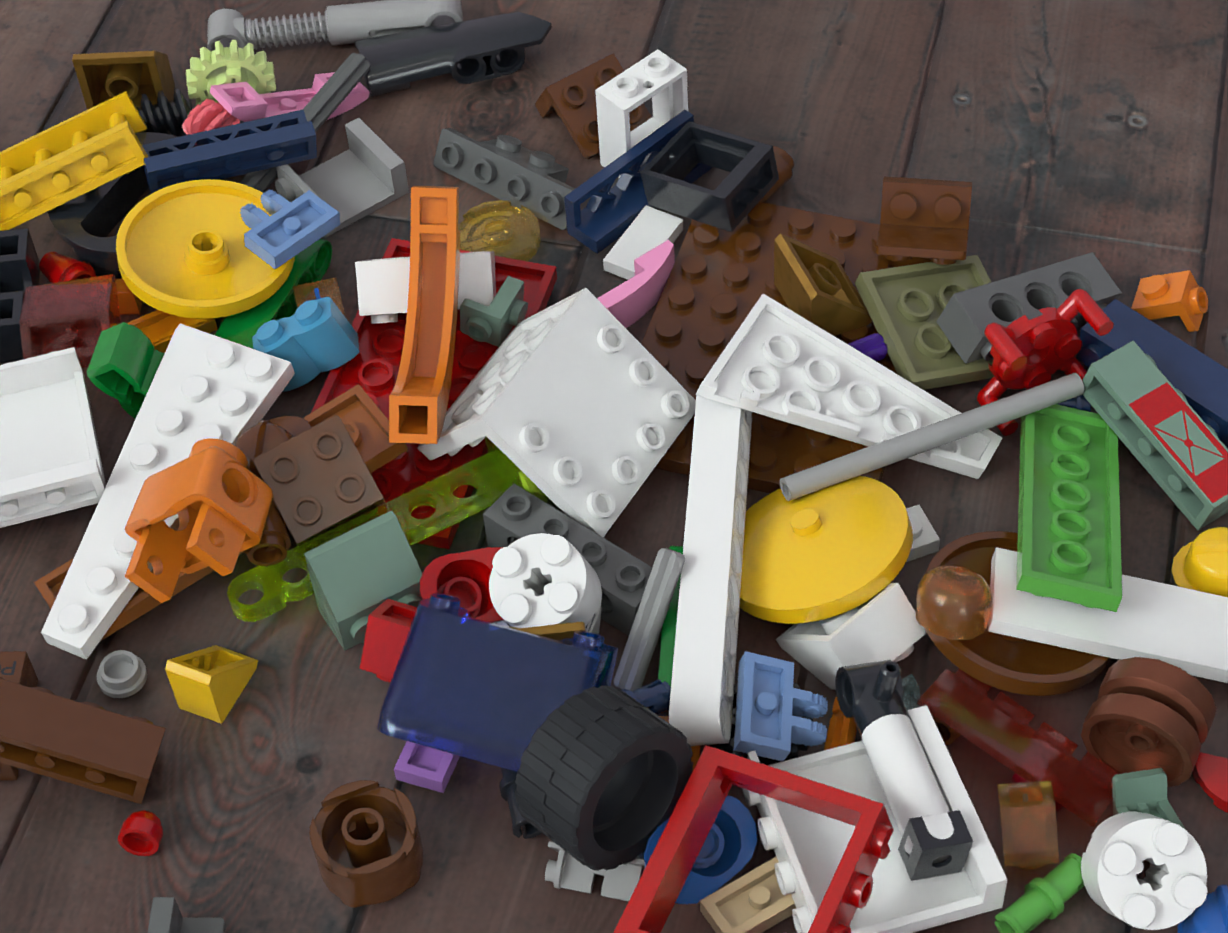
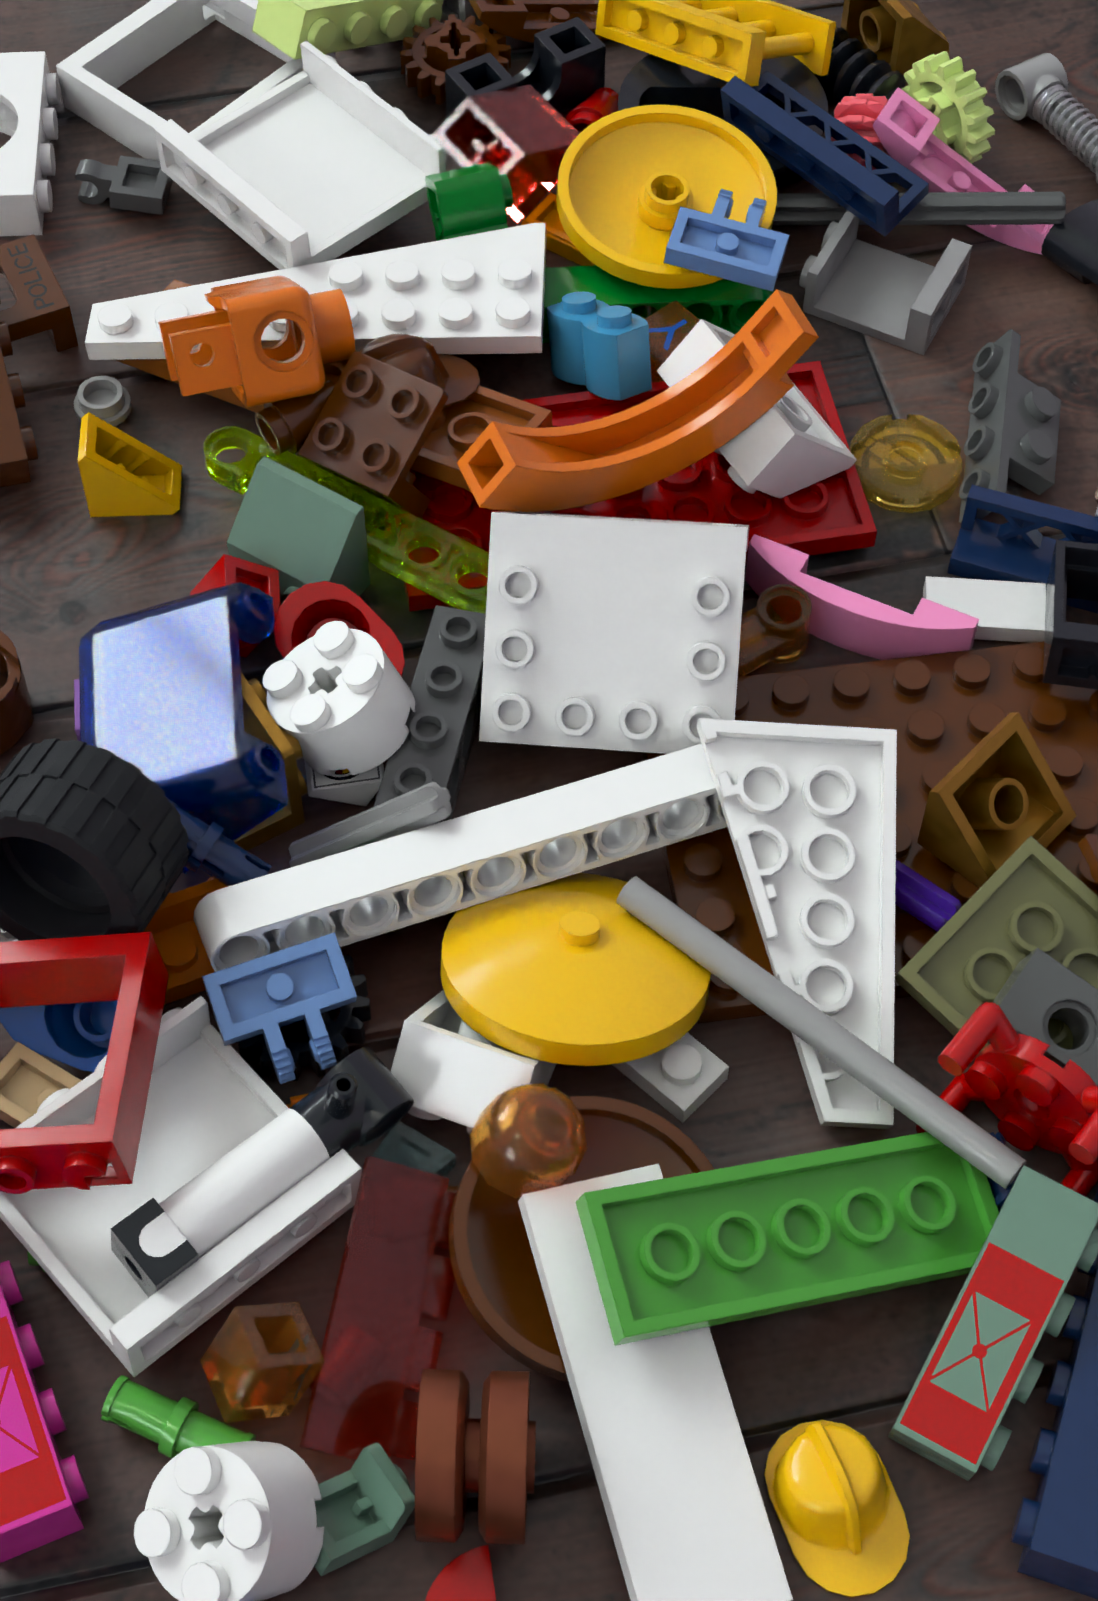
camera: 60 degrees right, 5 degrees up
(494, 322) = (747, 500): sand green bracket -> none

